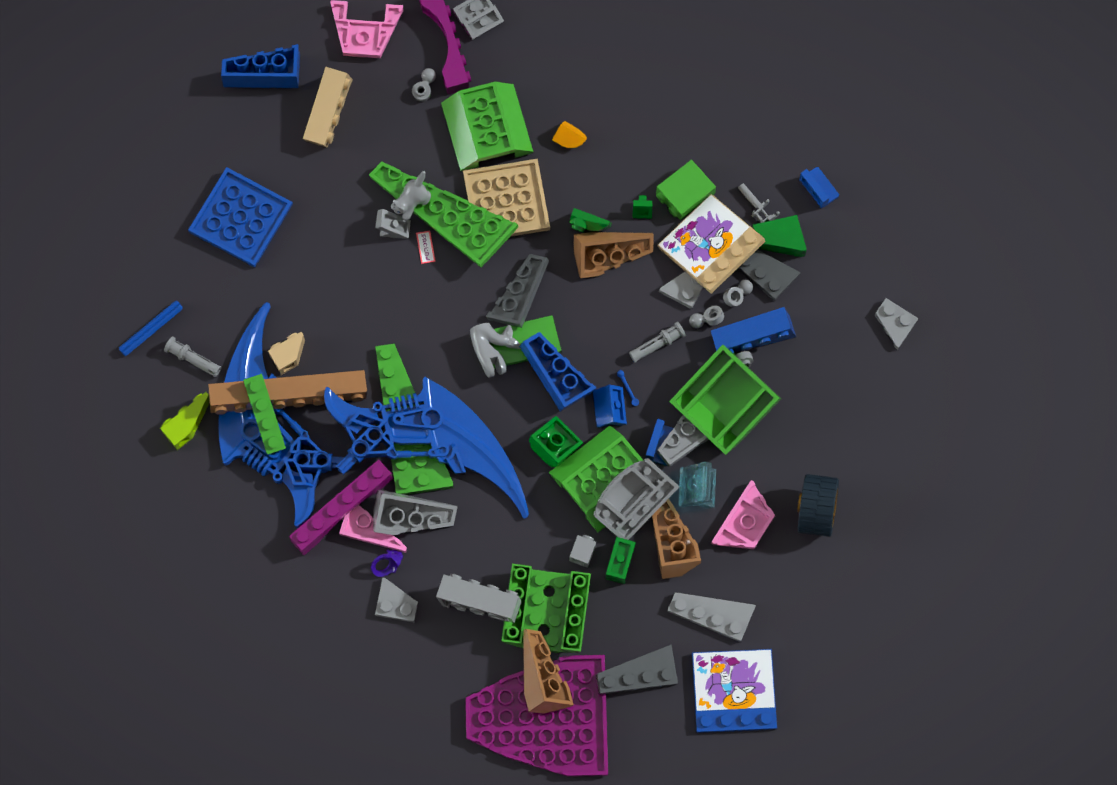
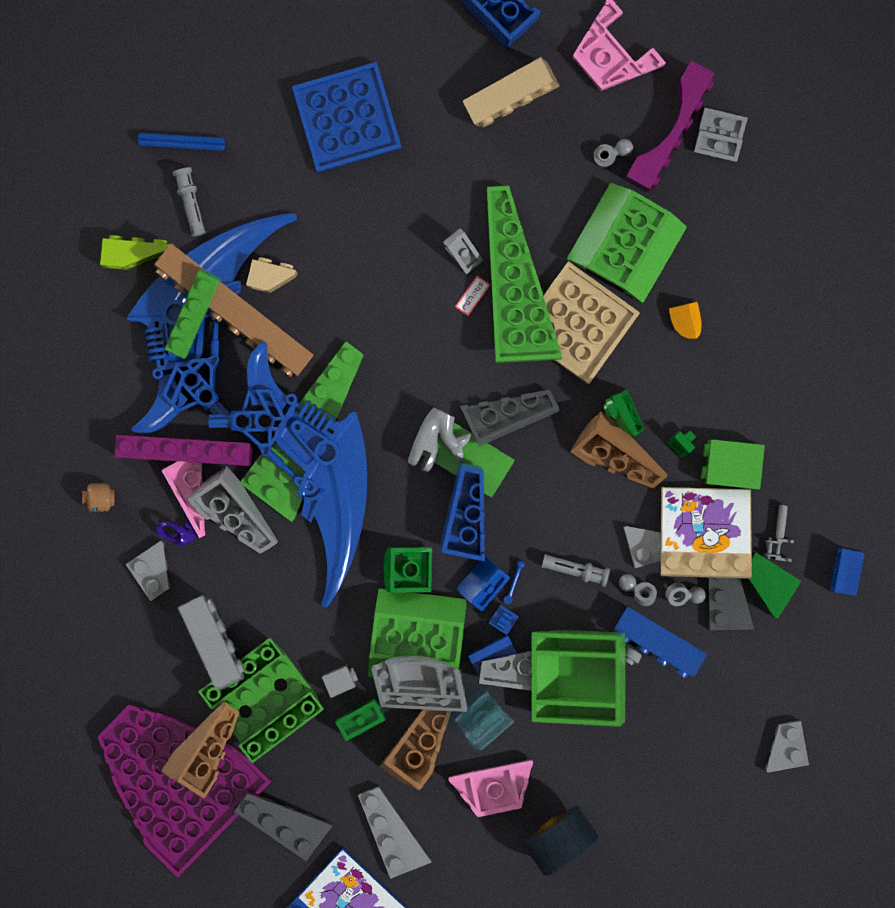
camera: 40 degrees right, 15 degrees up
(316, 589) = (98, 497): none -> medium nougat head
(413, 194) = (502, 244): light grey animal -> none
(644, 416) = (503, 619): none -> blue tile

